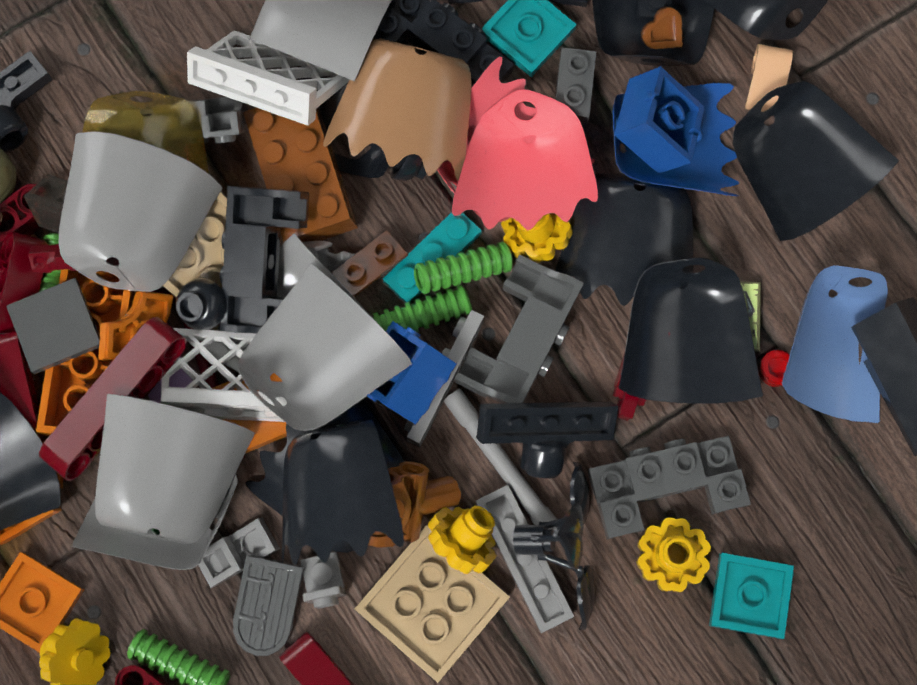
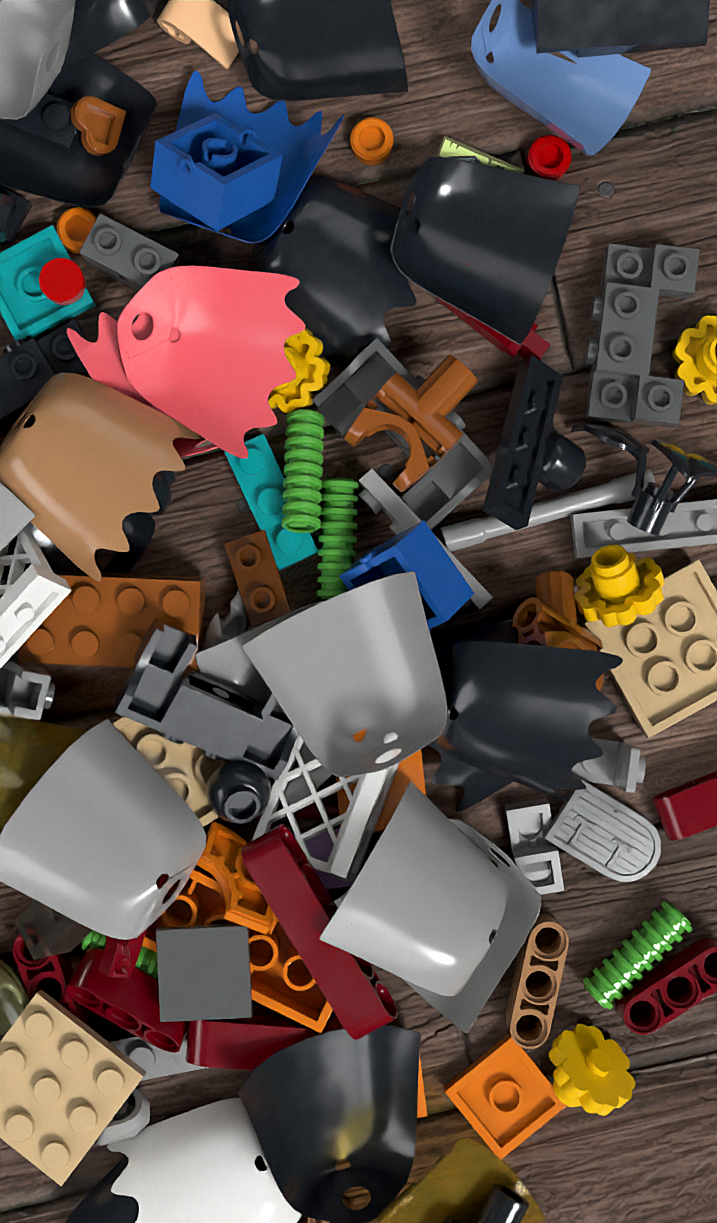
camera: 70 degrees left, 10 degrees up
(114, 587) = (539, 1001): none -> medium nougat beam
(533, 333) = (418, 416): none -> dark orange connector
(537, 44) = (62, 281): none -> red tile
(582, 39) = (75, 227): none -> orange tile
(734, 231) = (371, 141): none -> orange tile

